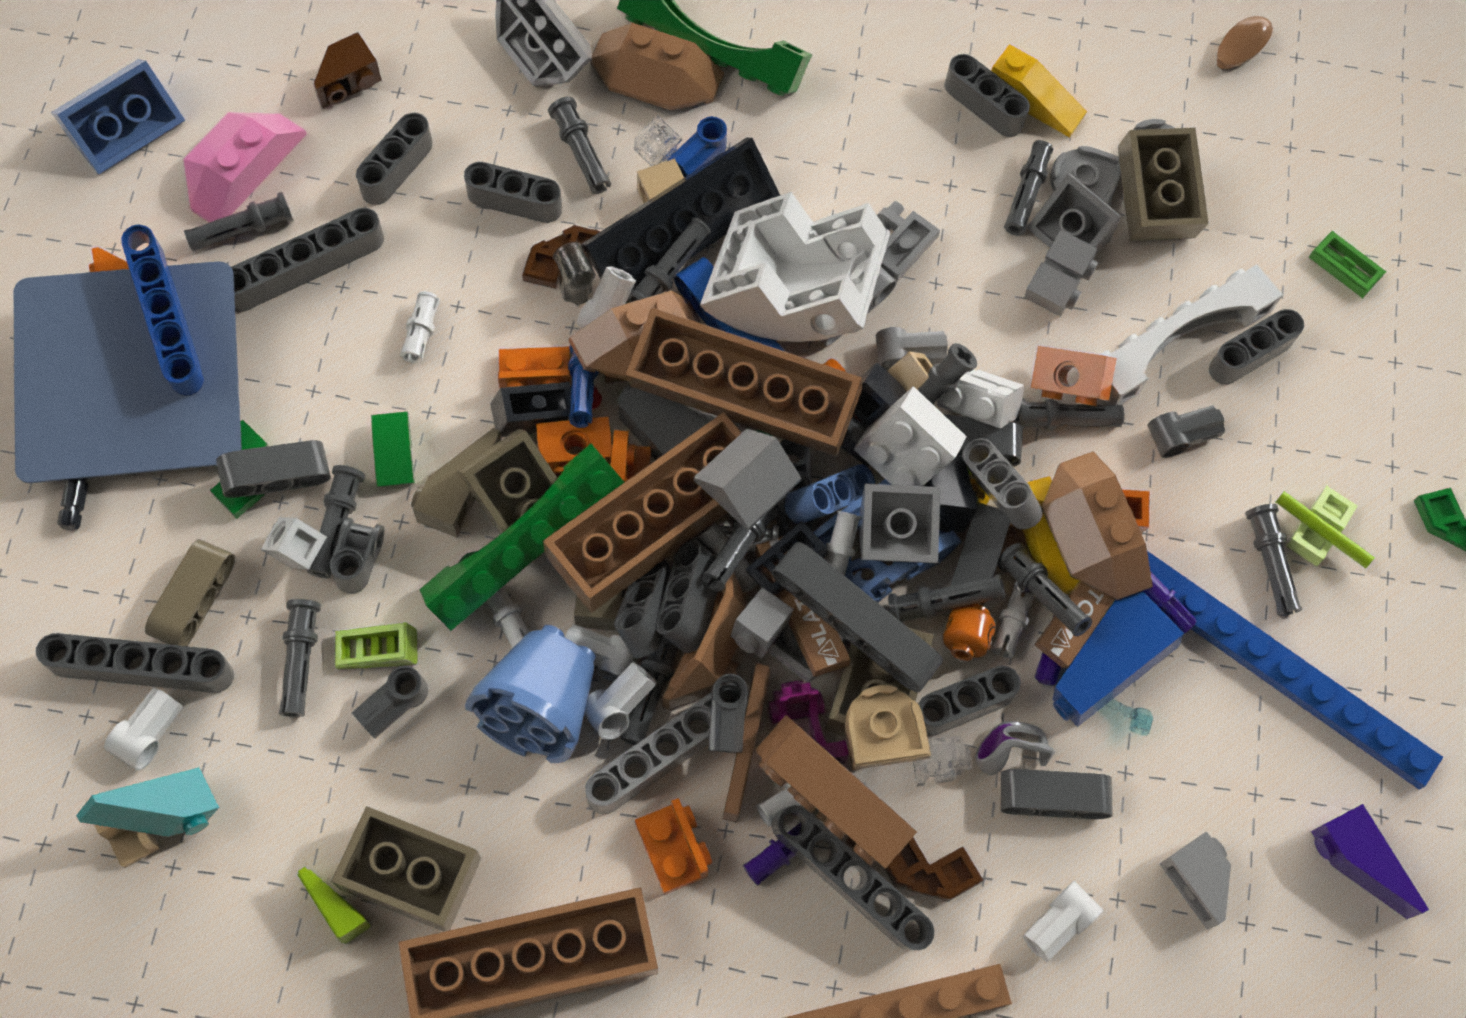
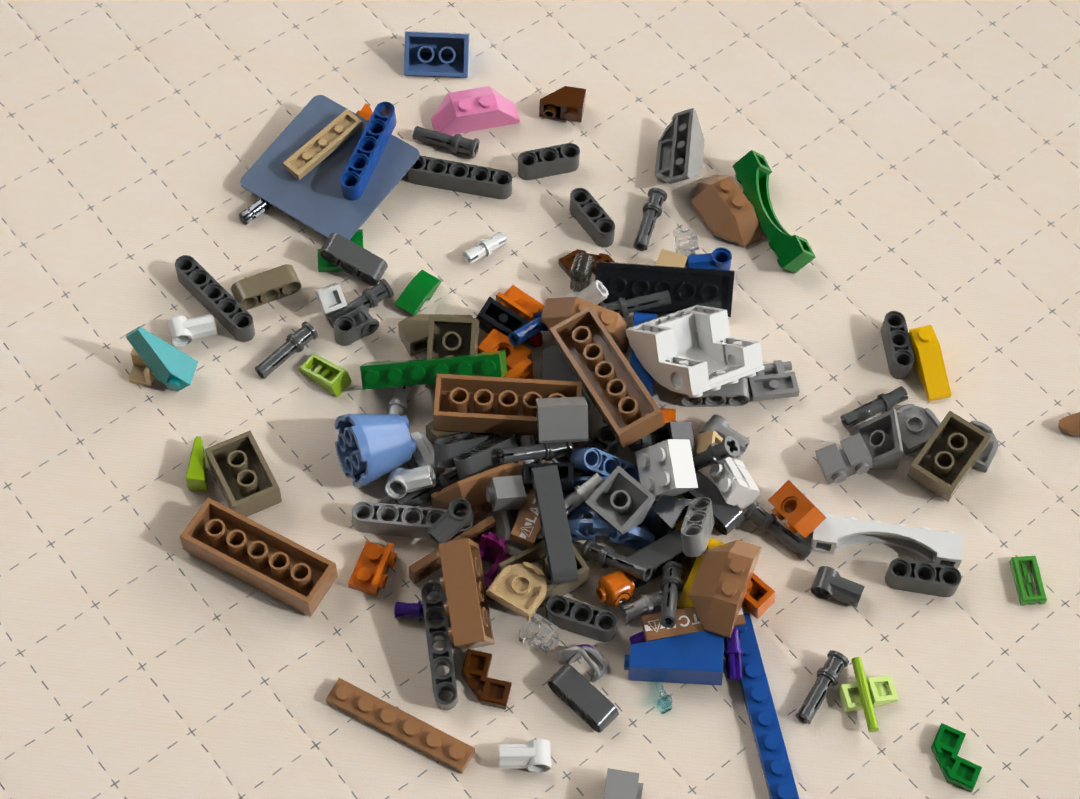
camera: 45 degrees right, 10 degrees down
(90, 346) = (323, 144): none -> tan plate
(388, 704) = (308, 401): dark grey piece -> none

